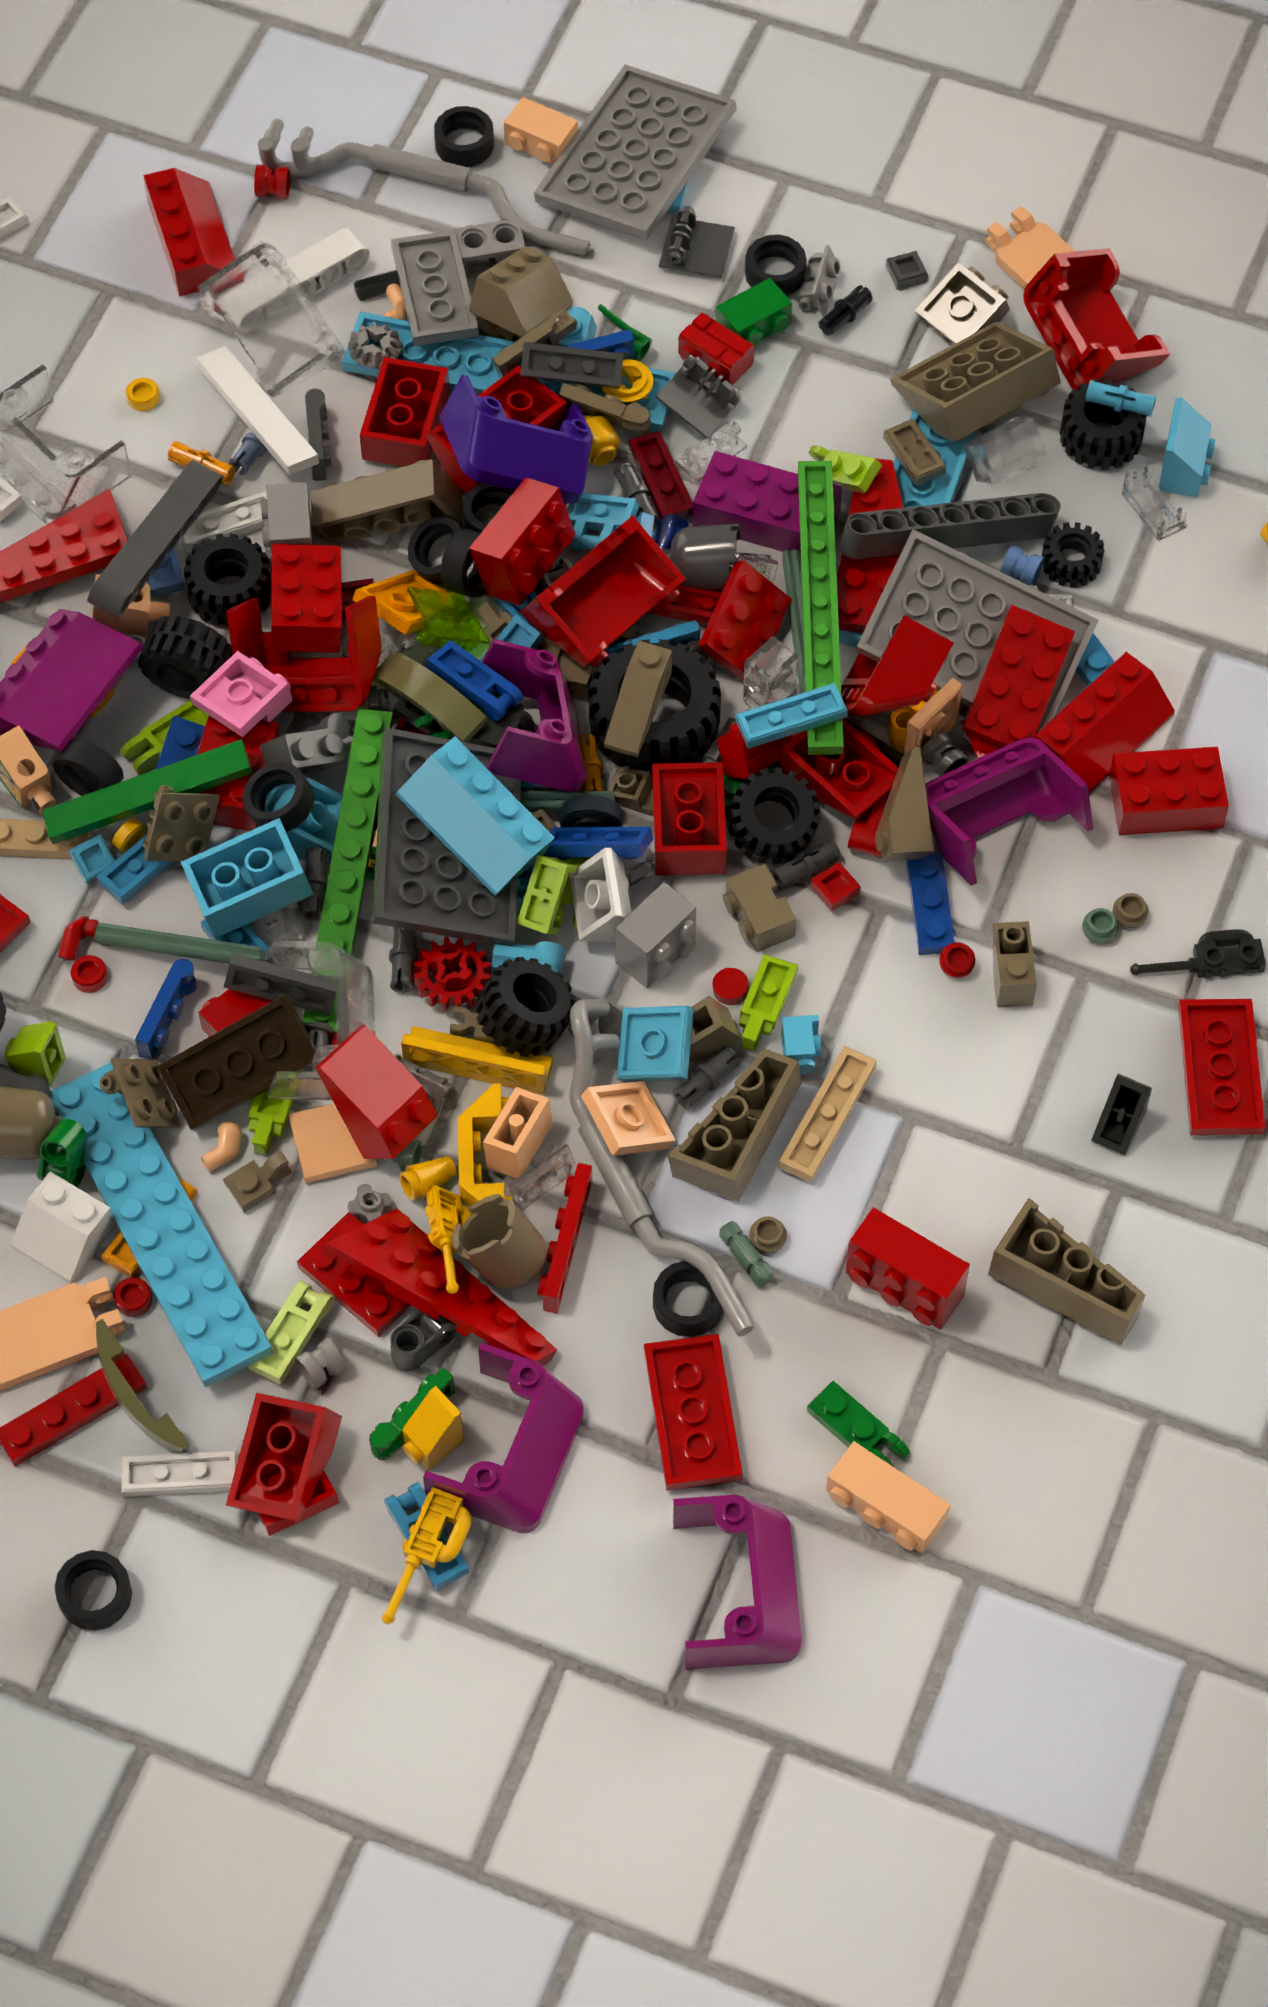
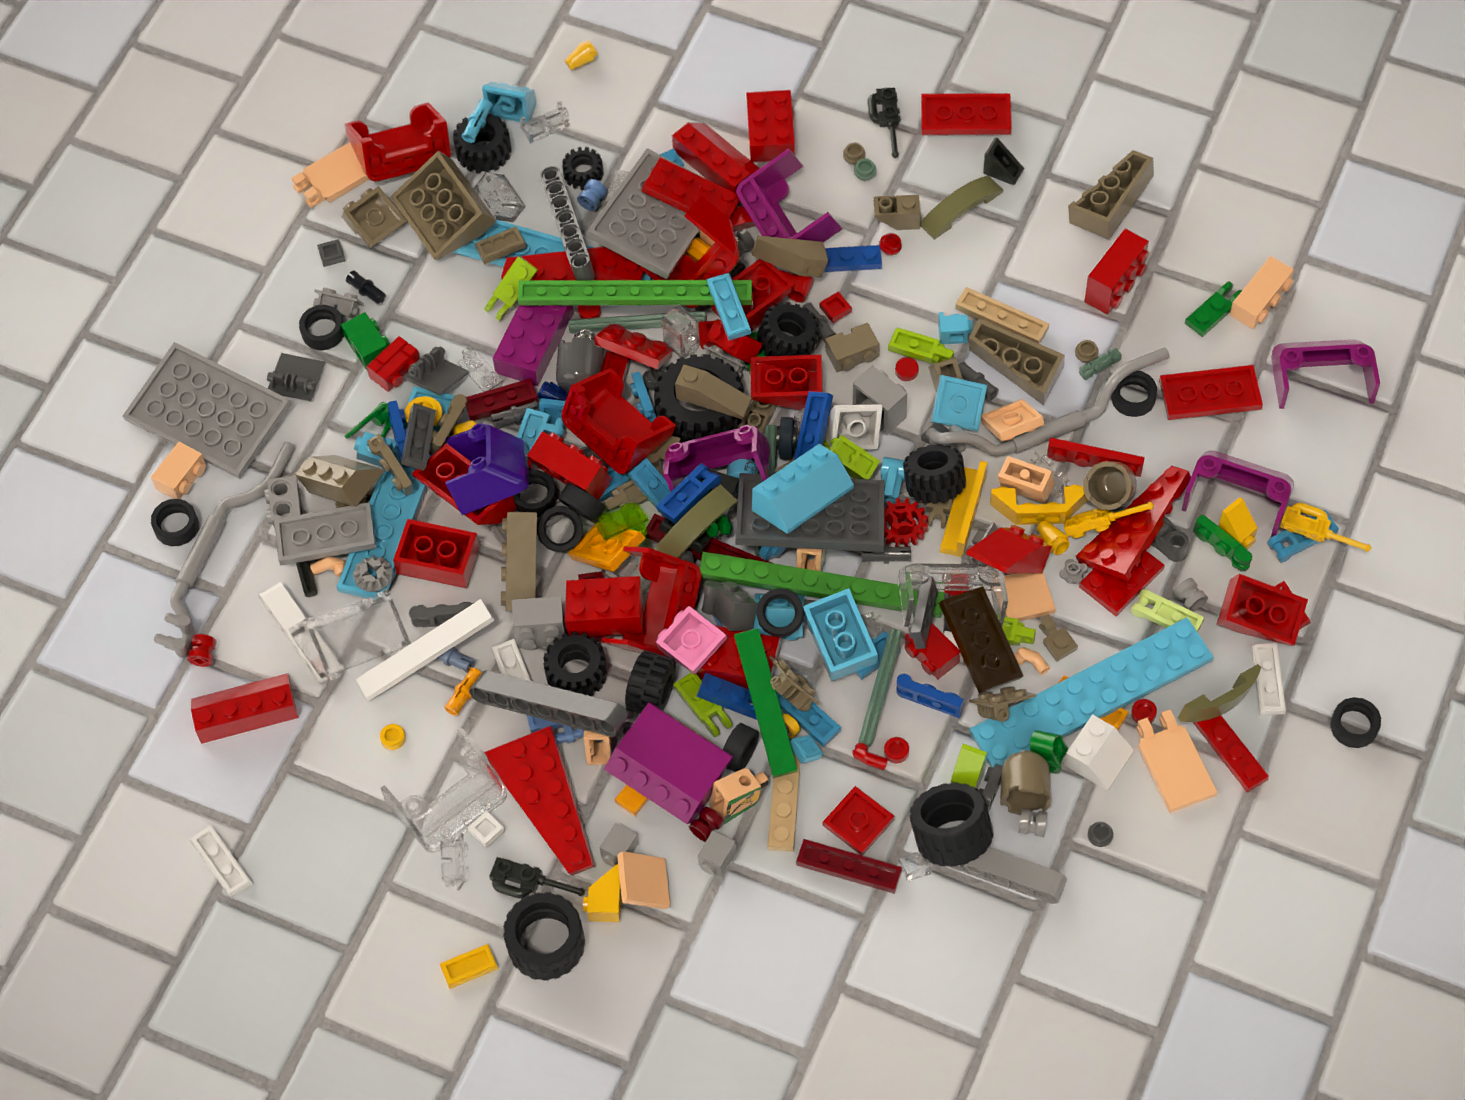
camera: 85 degrees left, 0 degrees up
(1045, 1060) = (958, 203): none -> olive slope

